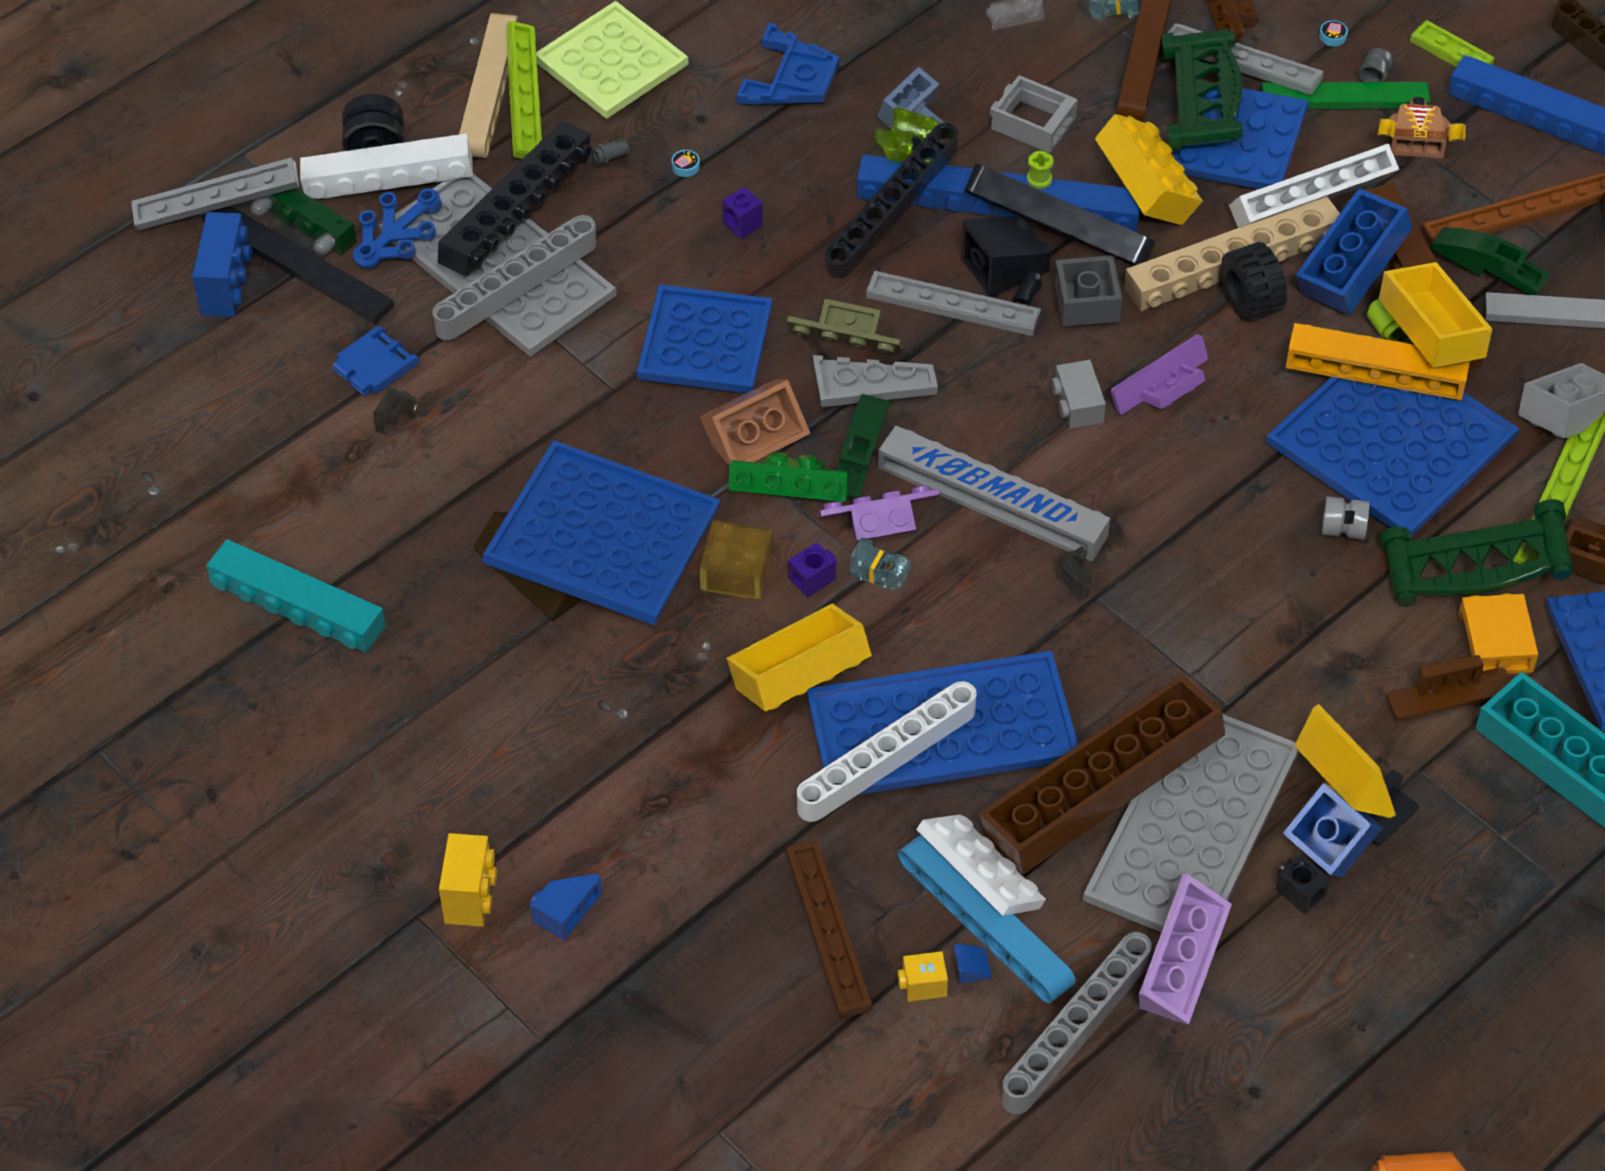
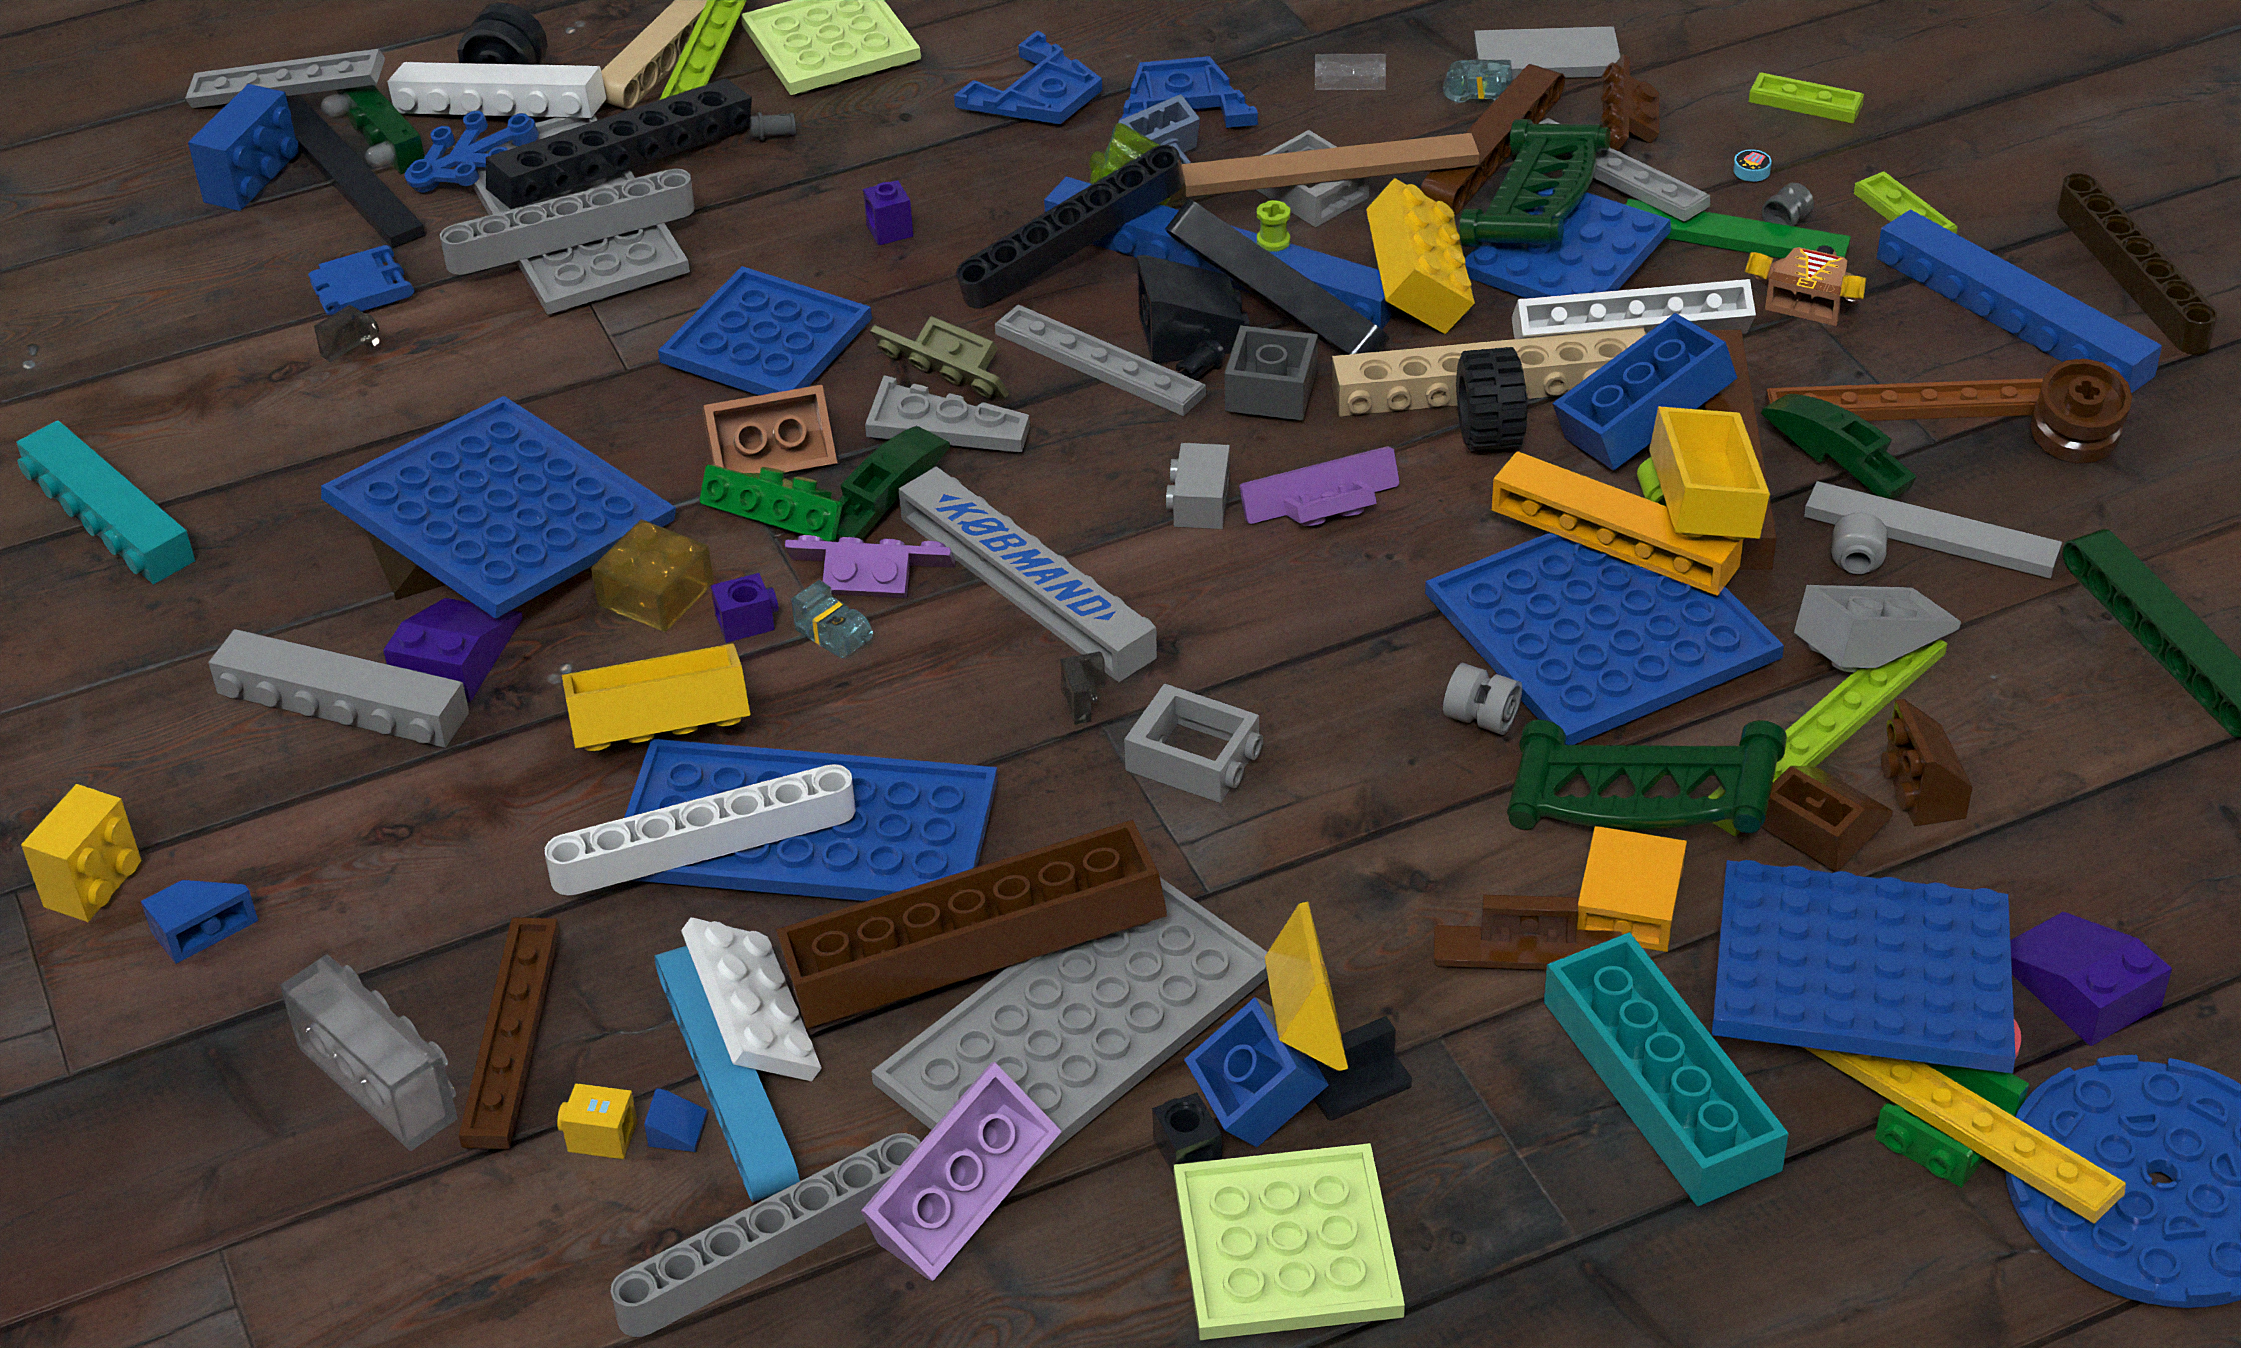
camera: 20 degrees right, 10 degrees down
(561, 704) = (339, 688): none -> light grey brick
(620, 653) = (452, 642): none -> dark purple slope
(685, 163) = (856, 155): tile -> none
(753, 971) = (370, 1051): none -> clear brick
(901, 49) = (1199, 83): none -> blue wing
(1053, 104) = (1329, 164): none -> medium nougat tile
(1171, 619) = (1184, 770): none -> light grey window
(1395, 937) = (1287, 1242): none -> yellowish green plate
(1533, 336) = (1859, 543): none -> light grey head

